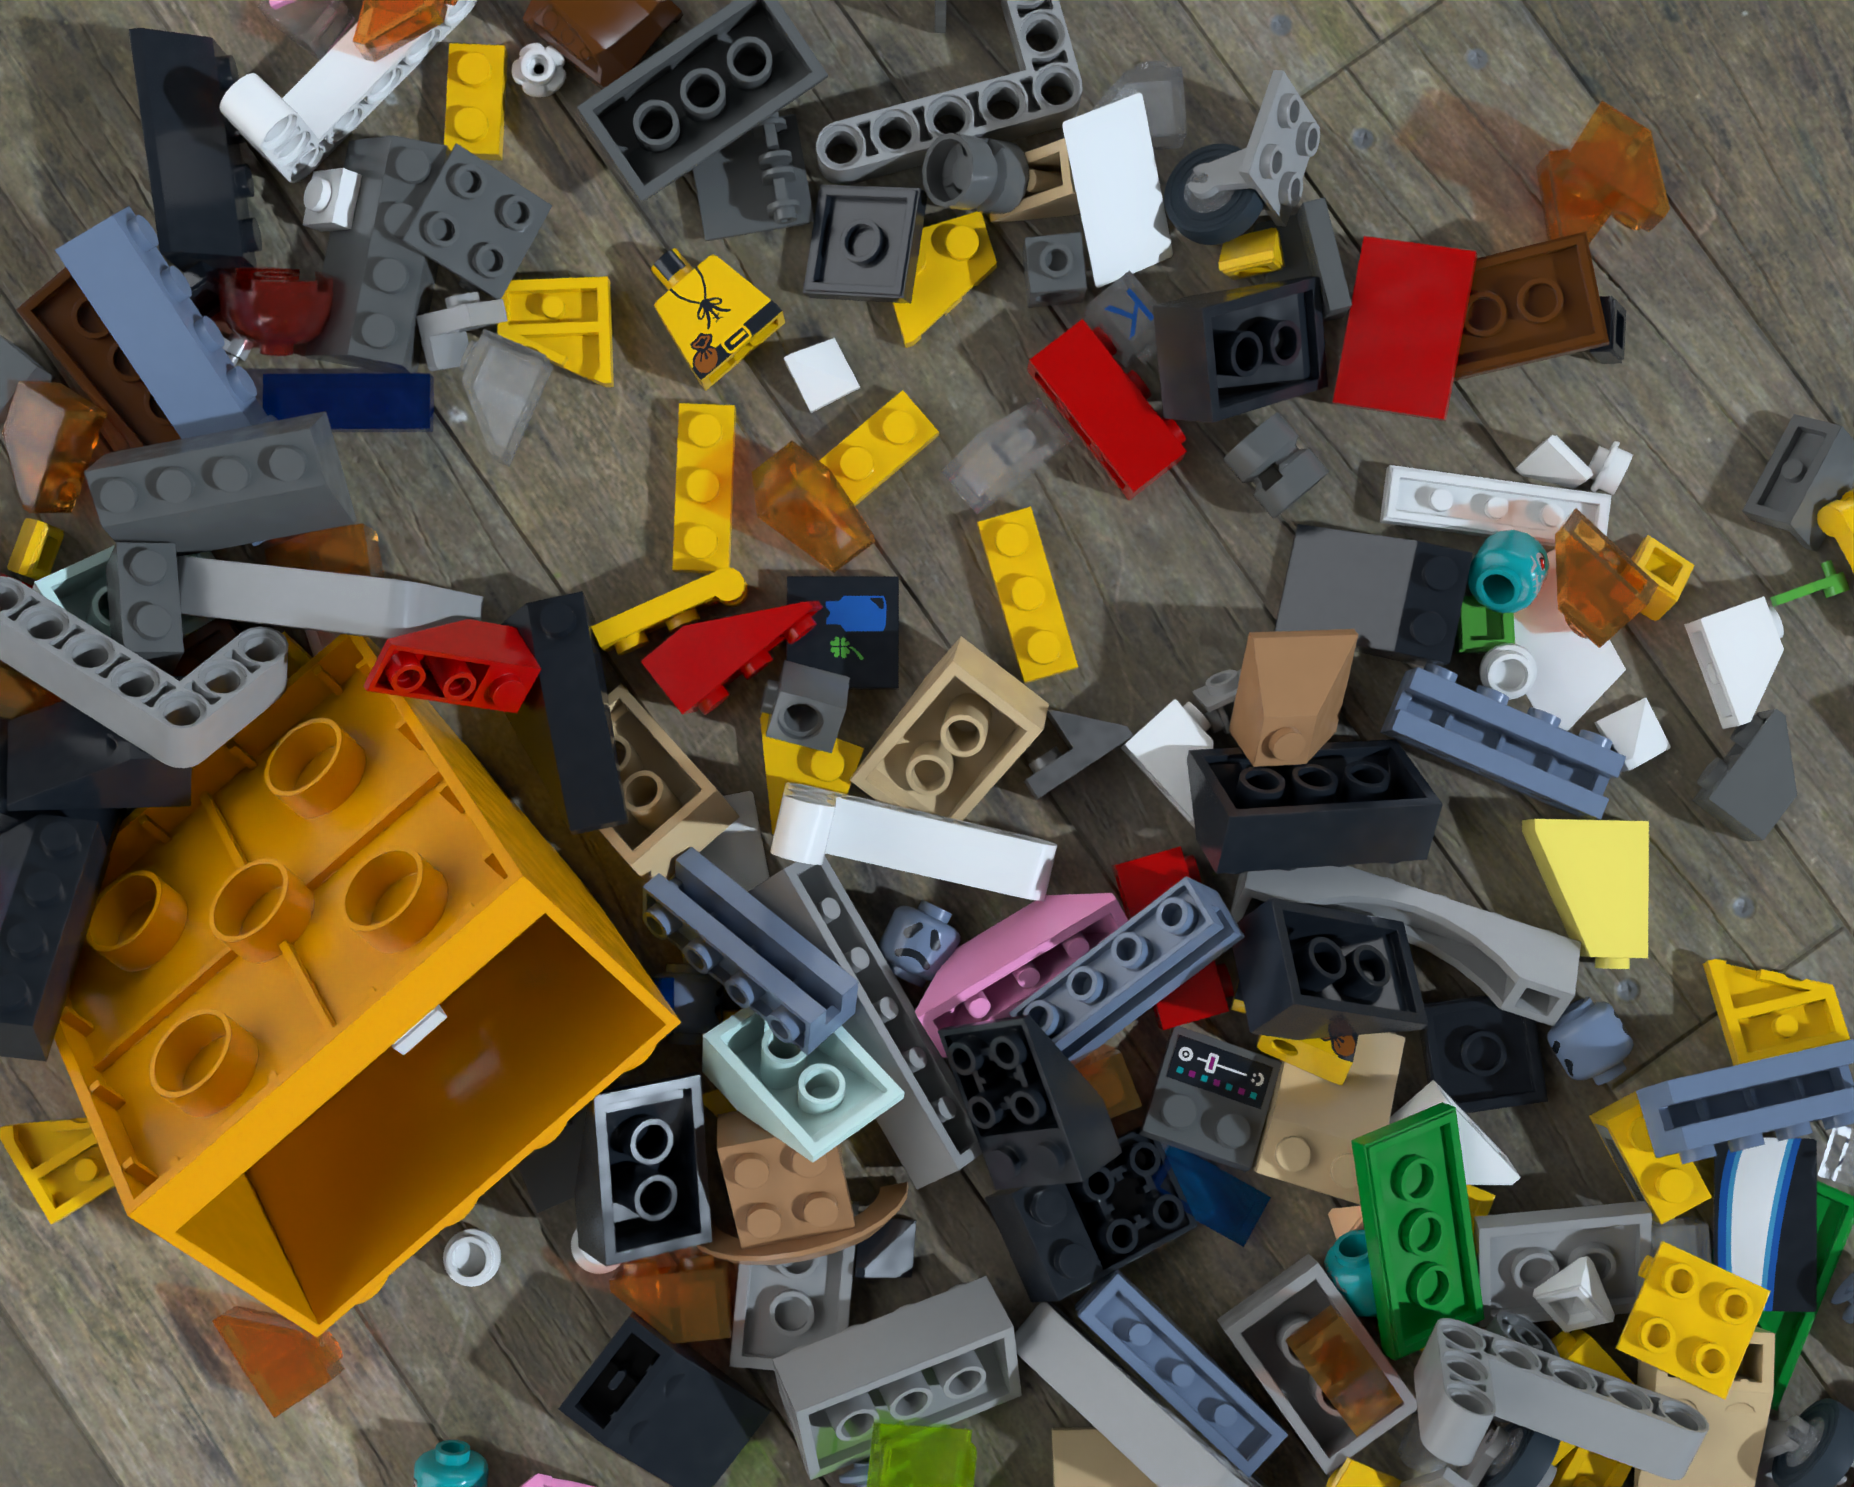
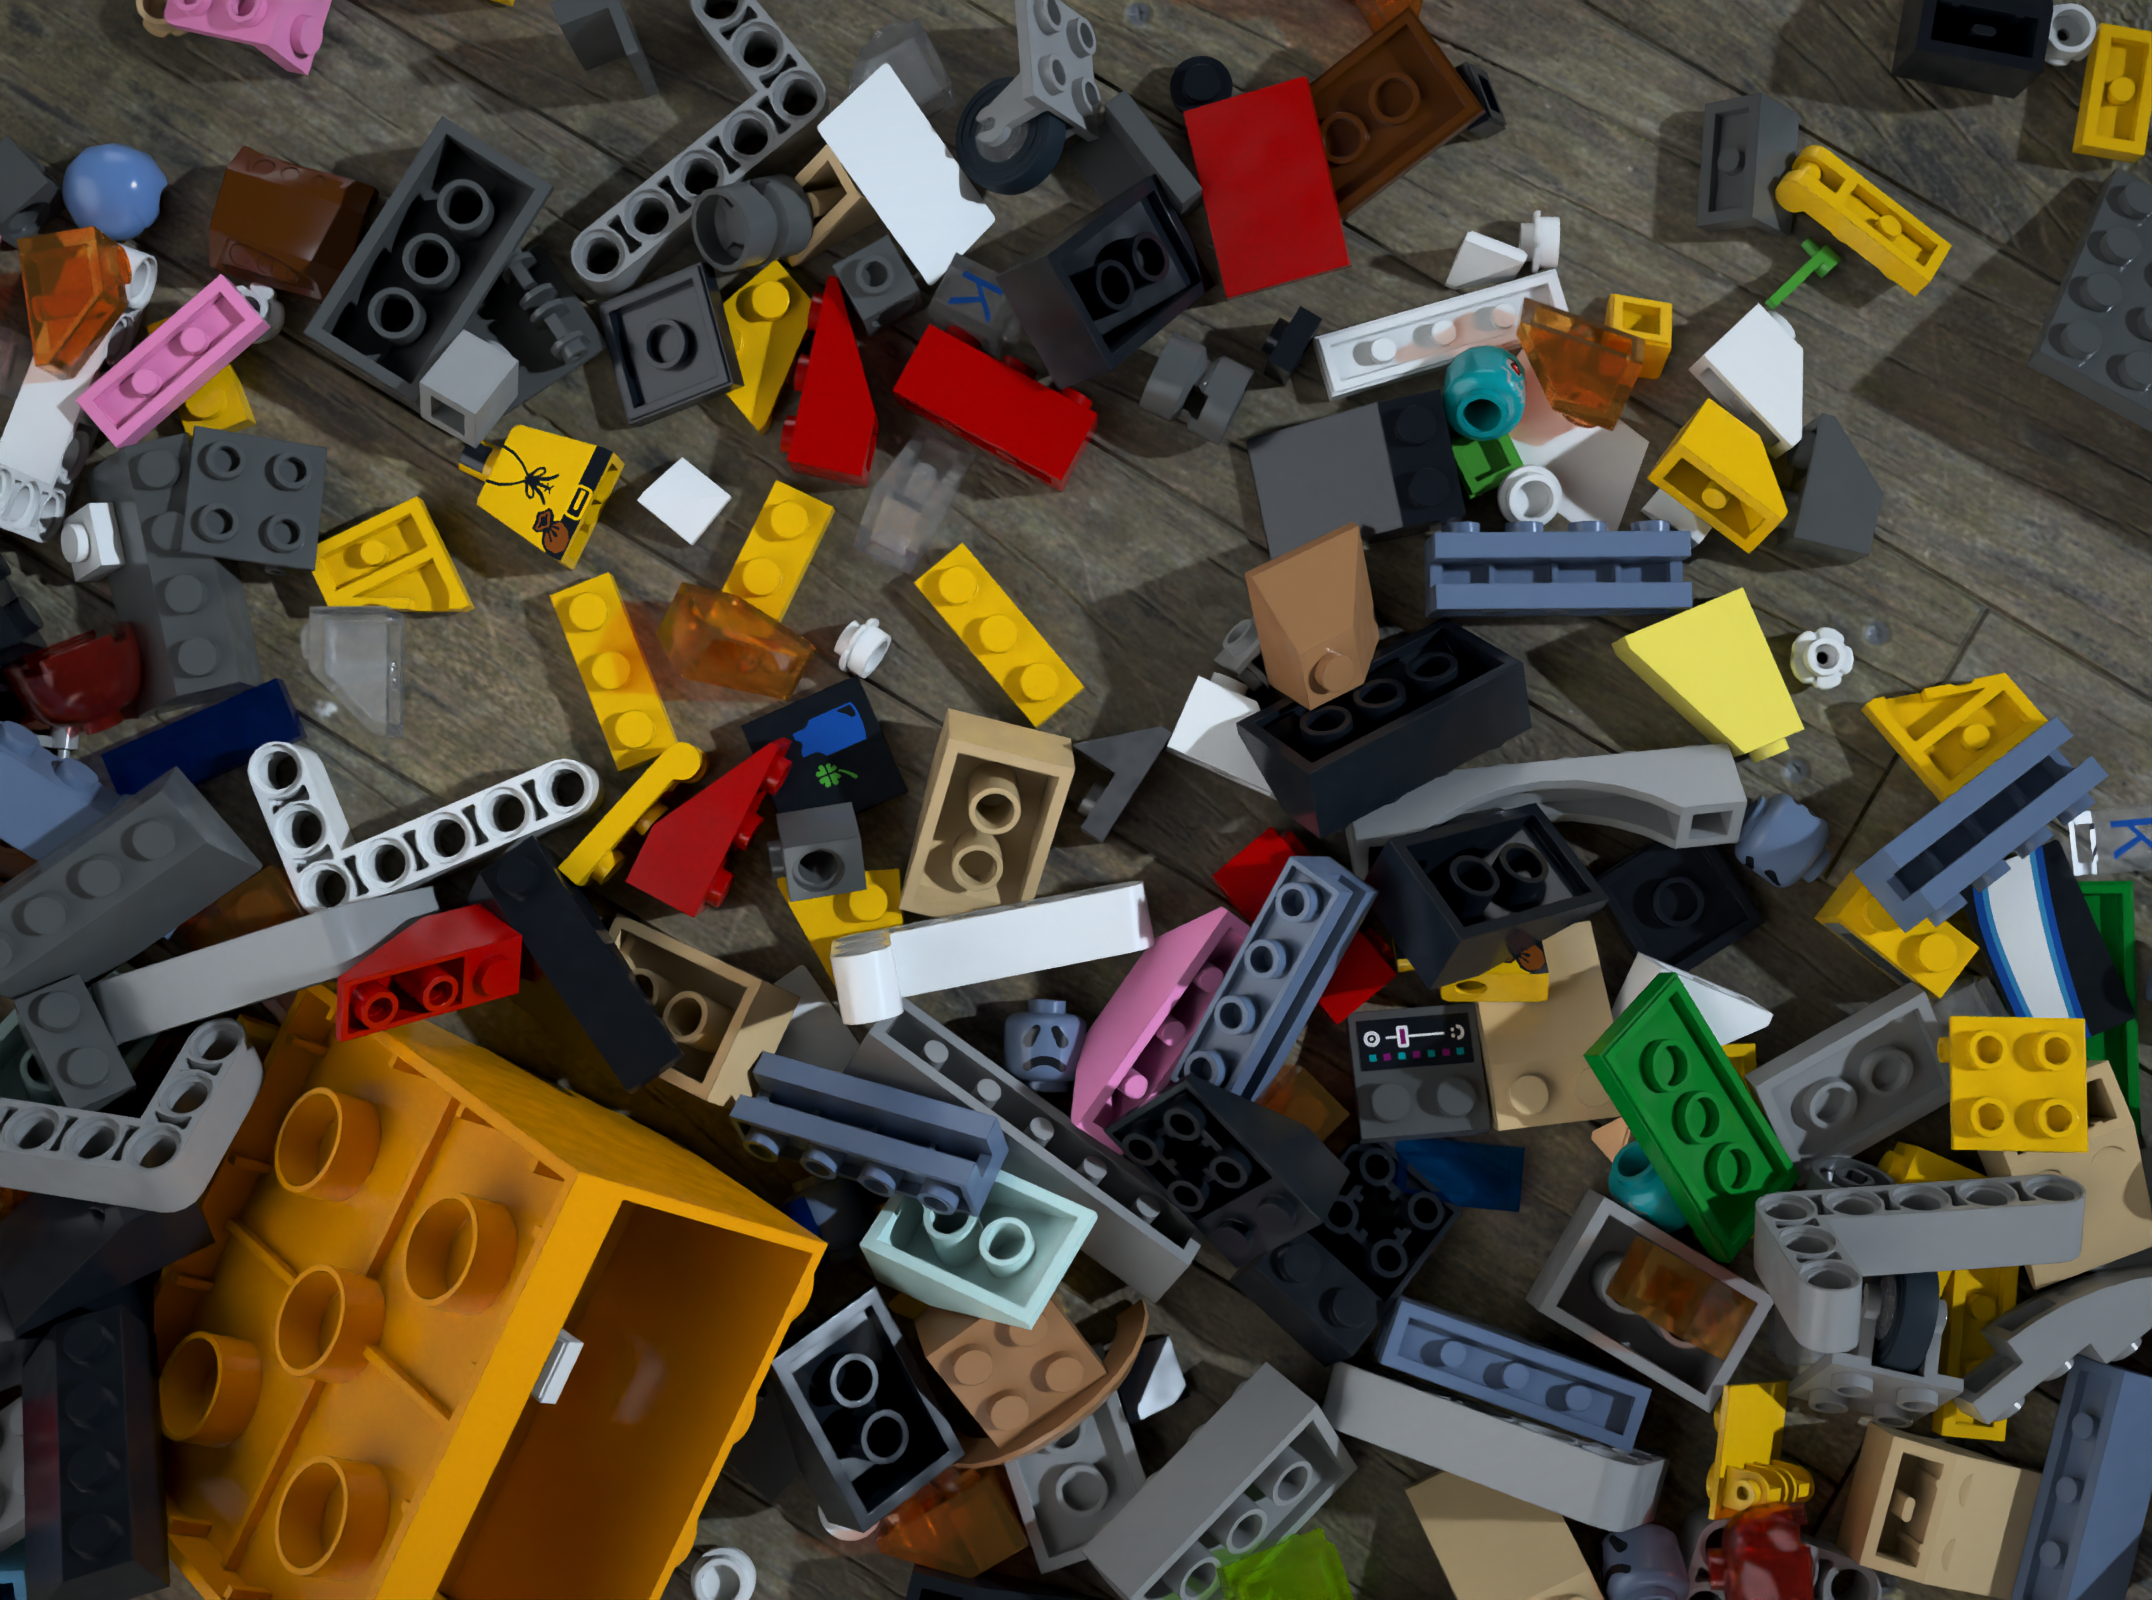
camera: 20 degrees left, 0 degrees up
(445, 330) = (272, 624): light grey bracket -> none
(460, 84) = (173, 363): none -> bright pink plate
(487, 553) = (417, 839): none -> white beam
(689, 208) = (469, 387): none -> light grey brick
(912, 556) = (862, 647): none -> white plate
(975, 358) = (836, 413): none -> red slope
(1252, 254) = (1076, 182): yellow slope -> none
(1367, 461) = (1288, 344): none -> black plate
(1387, 218) = (1199, 83): none -> black plate
(1575, 1297) = (1884, 1112): white slope -> none
(1672, 724) = (1722, 476): none -> yellow slope
(1673, 907) = (1809, 670): none -> white plate

